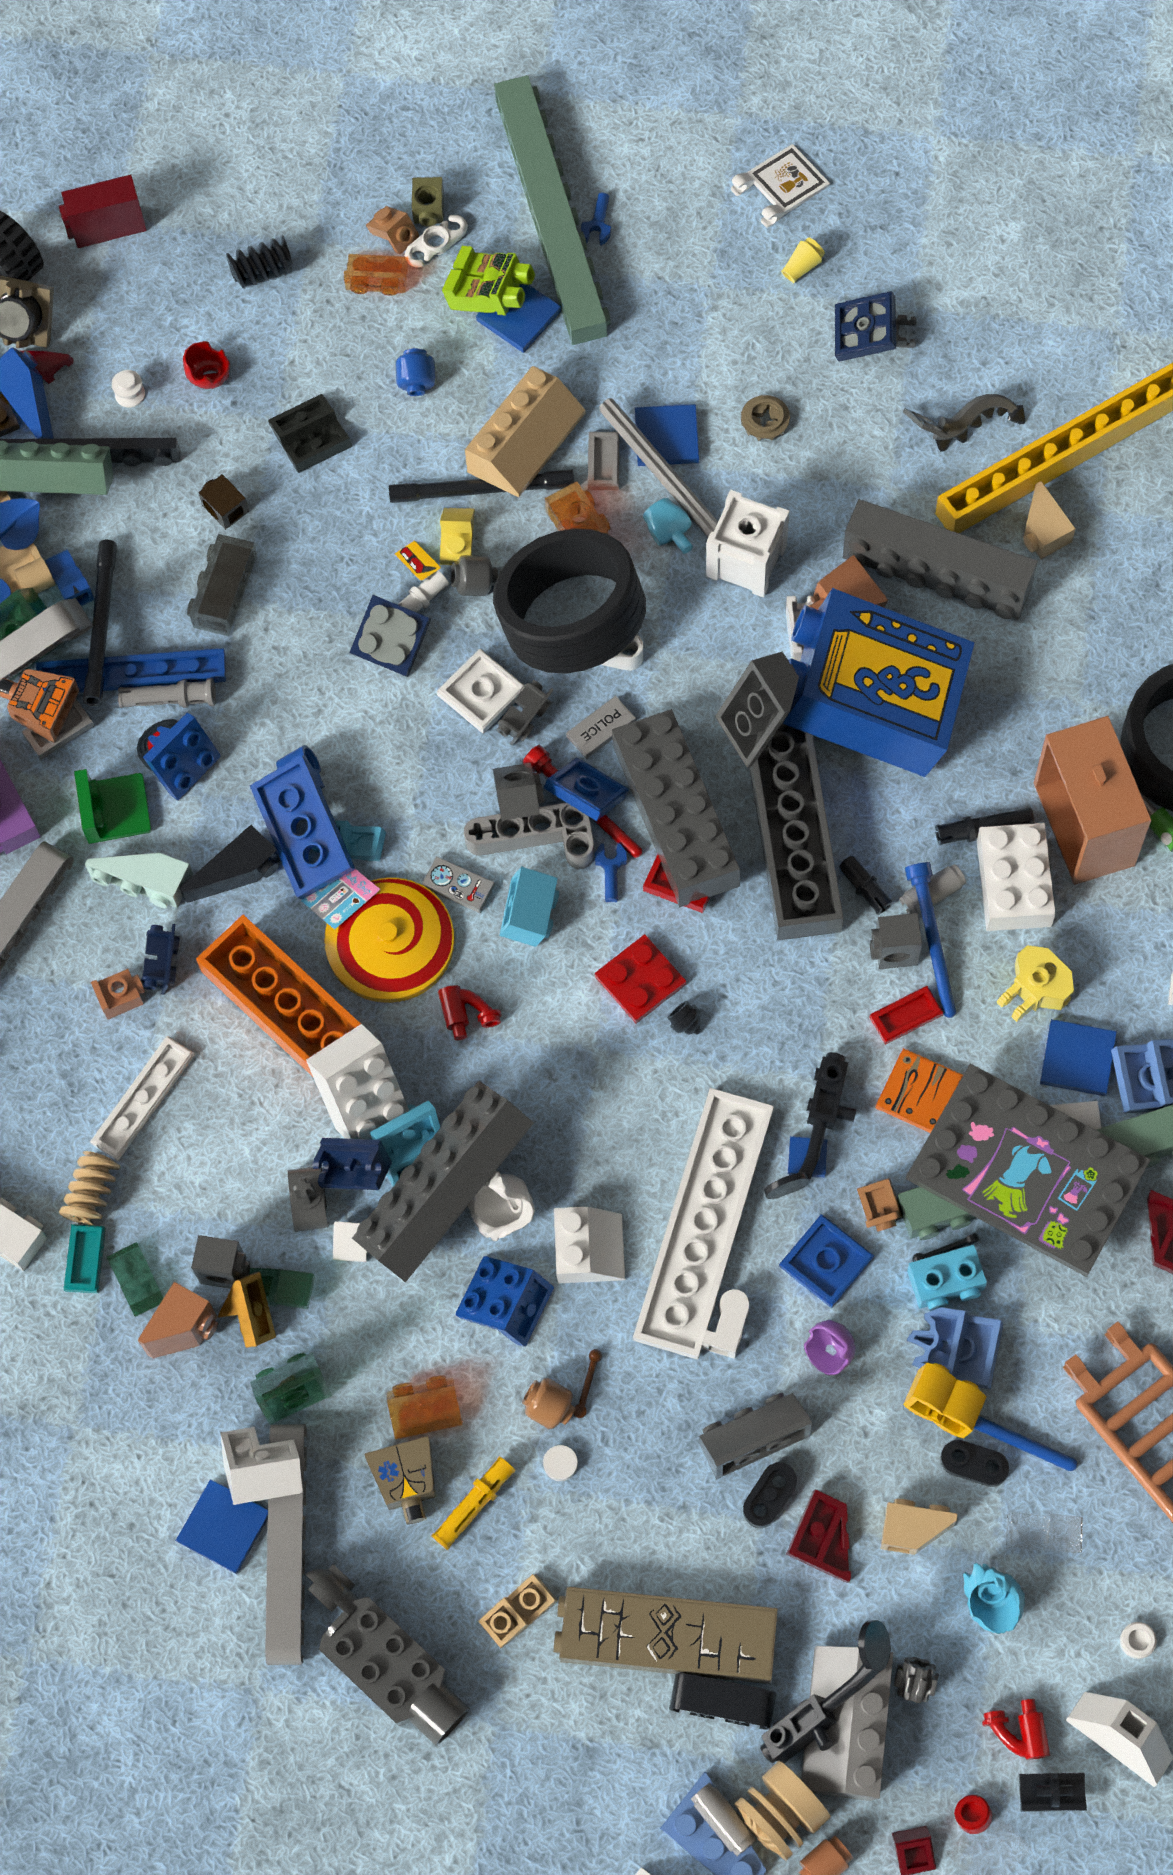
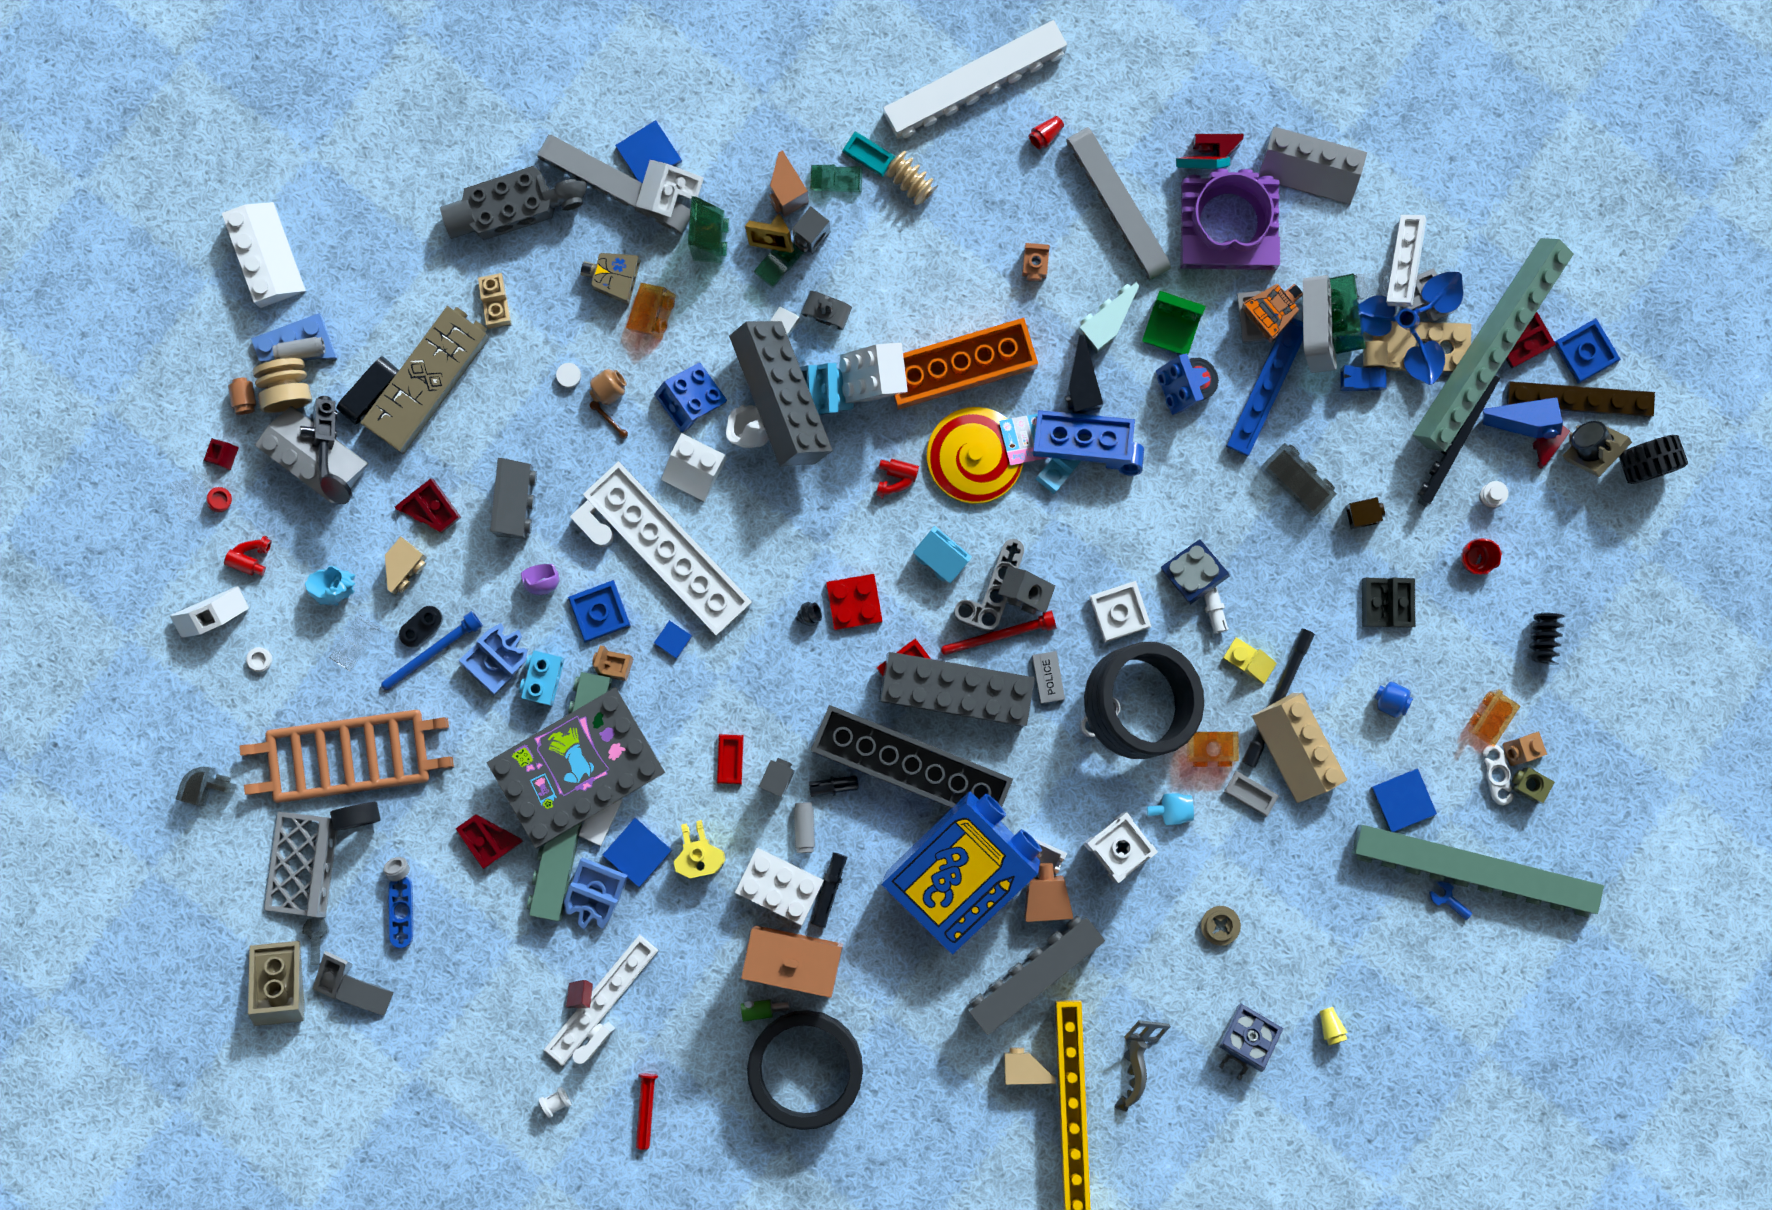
camera: 115 degrees right, 15 degrees up
(94, 678) = (1358, 408): black piece -> none
(102, 211) = (1649, 546): dark red brick -> none
(142, 1098) = (956, 242): white tile -> none
(159, 971) = (1035, 296): dark blue hinge -> none
(182, 693) = (1231, 411): light grey pin -> none
(352, 1163) = (824, 342): dark blue hinge -> none
(417, 561) = (1243, 621): sticker -> none
(458, 884) = (988, 520): light grey tile -> none
(473, 575) = (1209, 652): dark grey head -> none
(473, 1503) = (578, 319): yellow pin -> none
(486, 282) = (1437, 788): lime hips -> none
(518, 723) = (1088, 639): dark grey hinge -> none
(586, 788) = (1004, 639): blue tile -> none
(611, 867) = (942, 626): blue bar -> none
(658, 466) = (1219, 827): light grey axle -> none
(670, 431) = (1246, 849): blue tile -> none
(758, 705) = (977, 773): dark grey slope -> none
(768, 1495) = (473, 490): black plate -> none
(784, 180) = (1407, 1055): white flag -> none
(823, 1112) = (694, 665): black piece -> none
(916, 1680) = (312, 510): dark grey gear -> none
(918, 1090) = (674, 736): orange tile -> none
(920, 875) = (812, 820): blue piece -> none
(945, 1400) = (462, 626): yellow brick -> none
(966, 1241) = (566, 670): black hinge -> none
(1052, 1792) = (200, 551): black hips -> none

